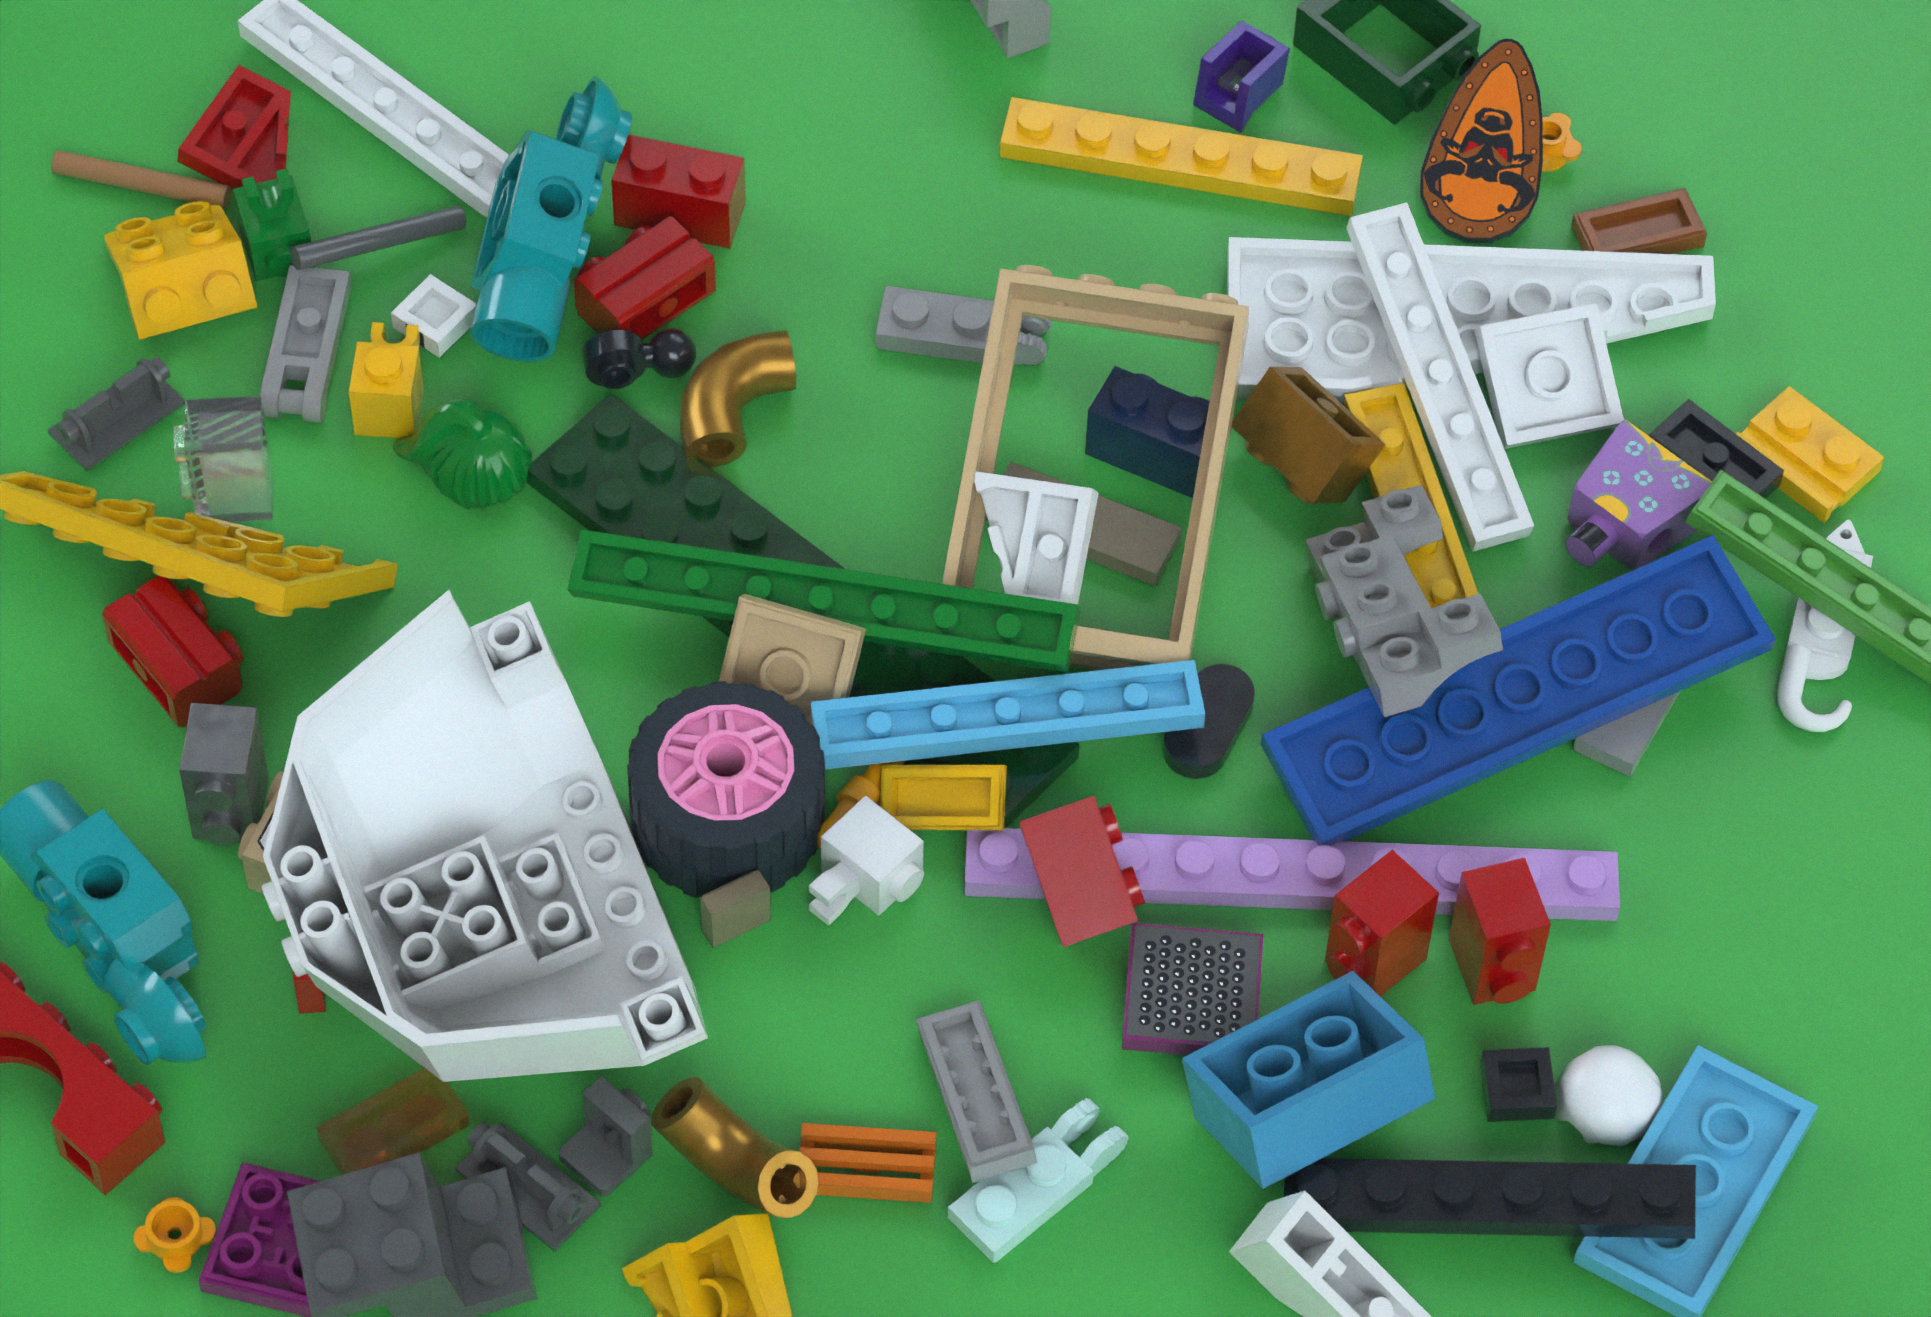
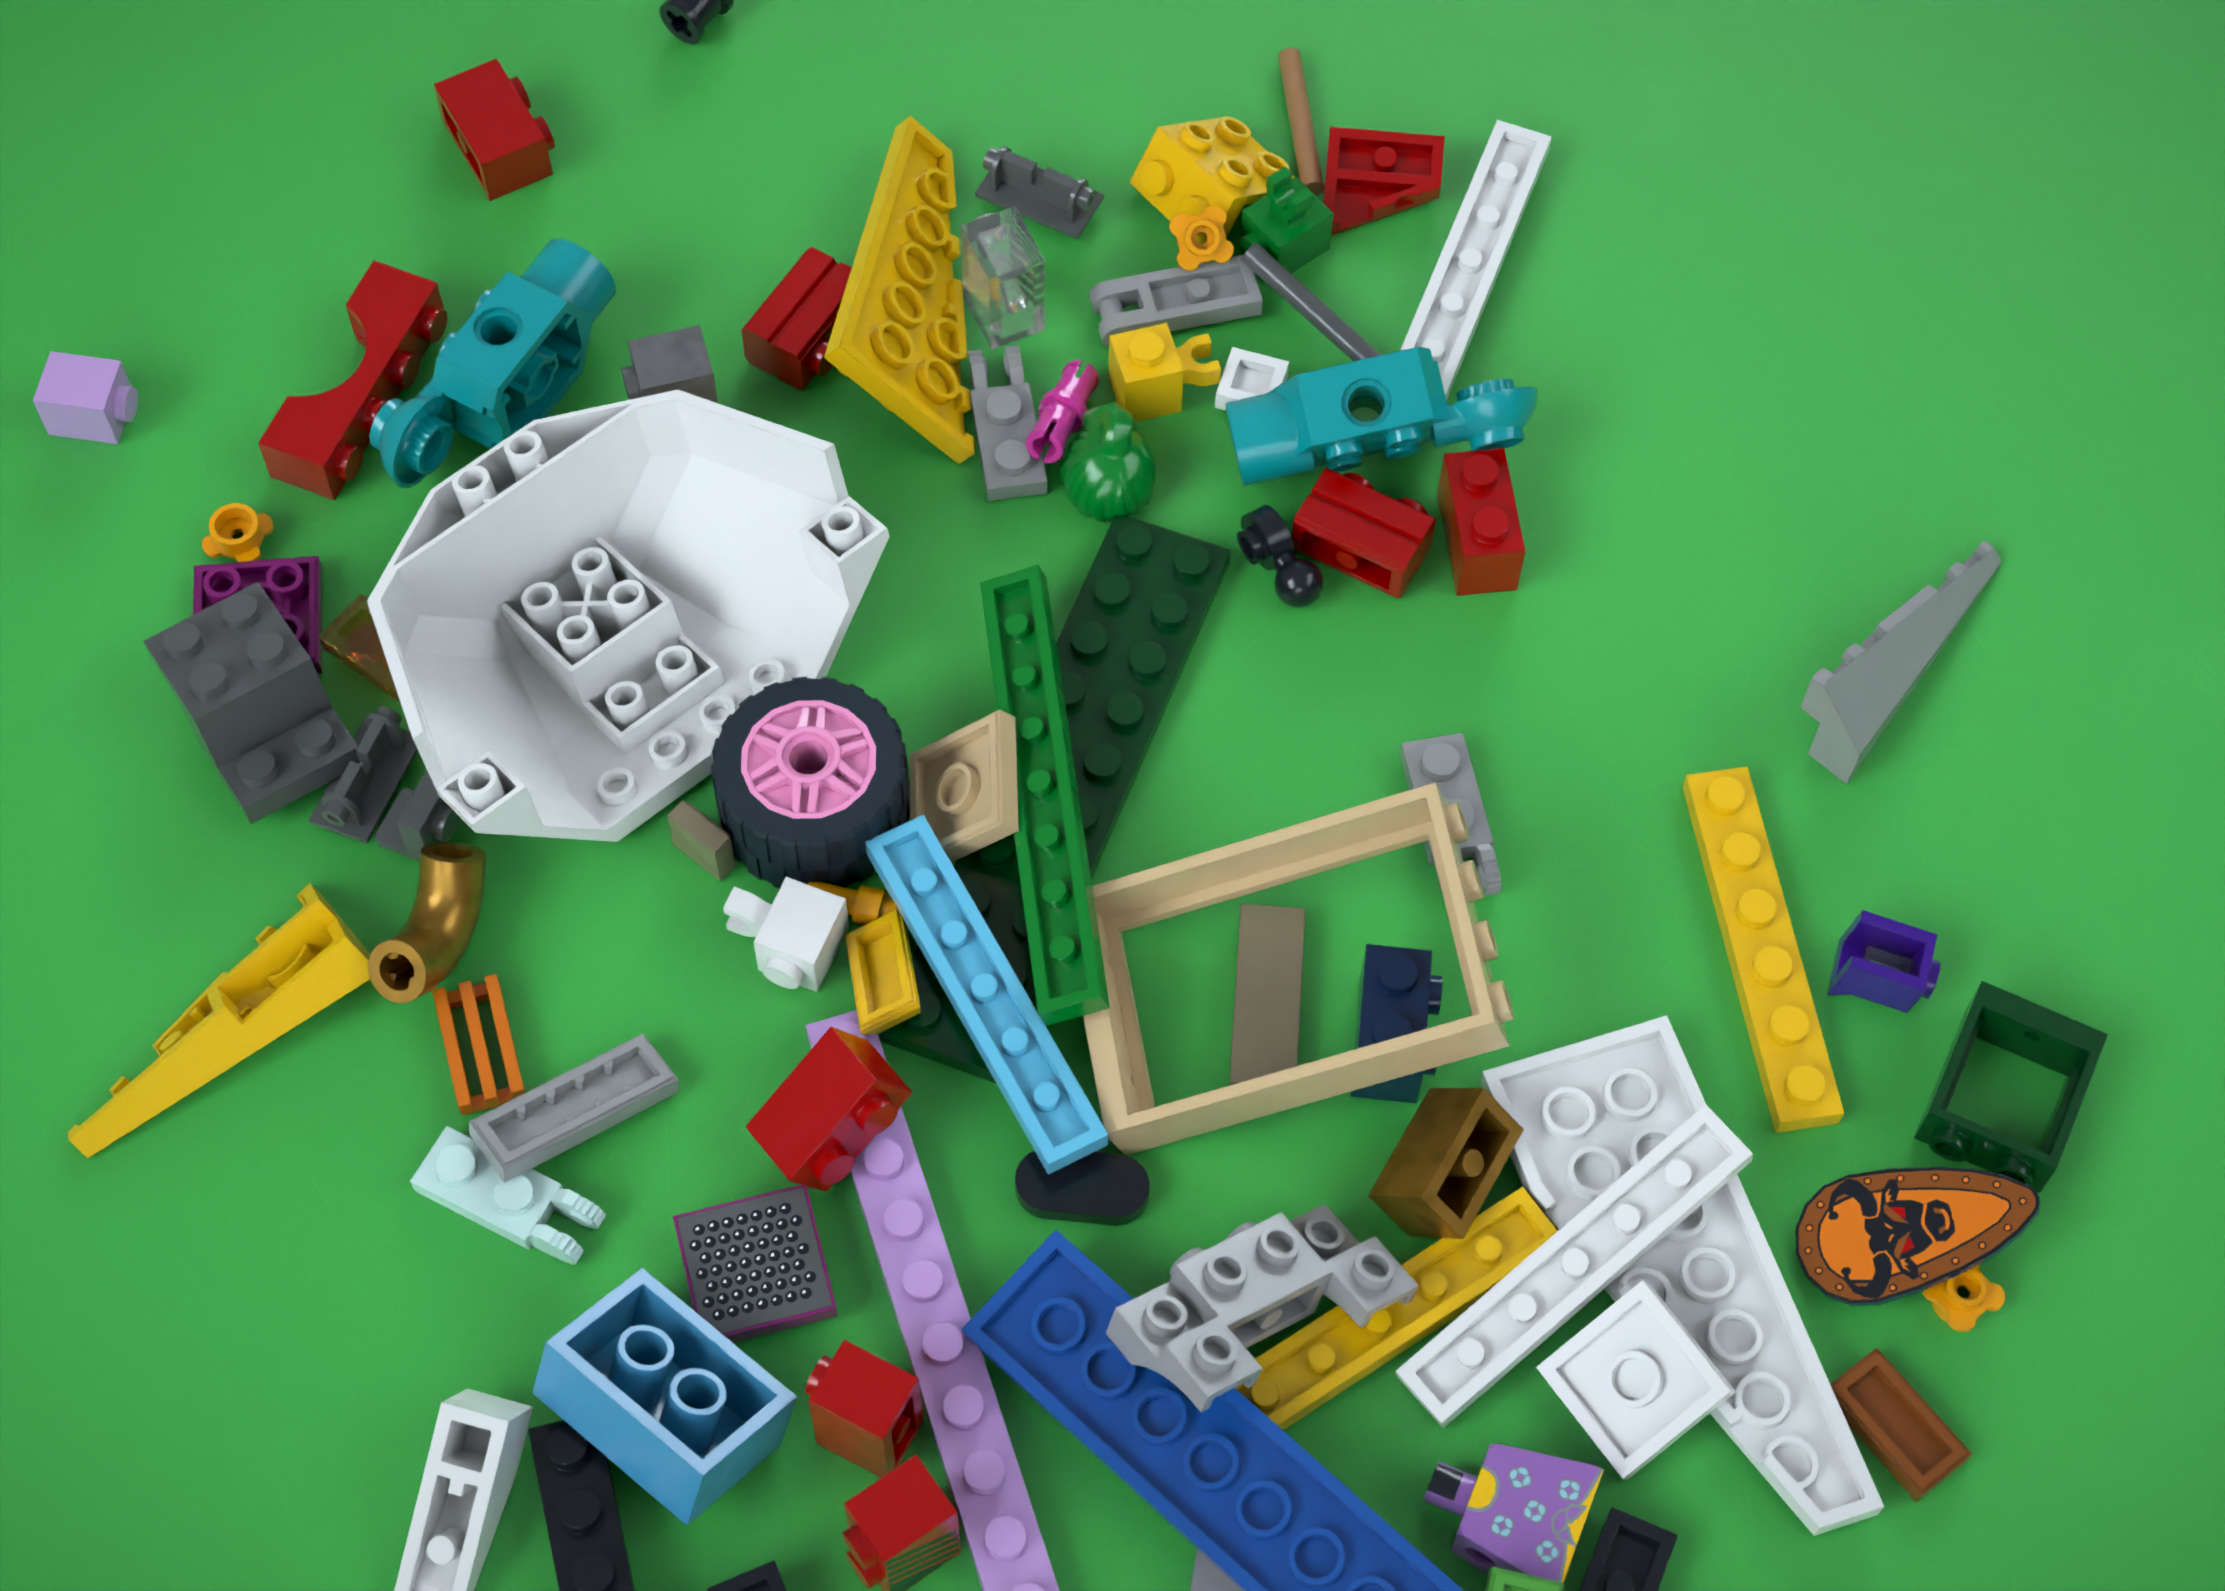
camera: 70 degrees right, 5 degrees up
(253, 298) = (1216, 245): none -> light orange plate
(375, 528) = (1002, 423): none -> light grey hinge
(395, 470) = (1062, 411): none -> dark pink pin
(724, 385) = (1277, 636): pearl gold cylinder -> none
(1039, 534) = (1182, 946): white wing -> none

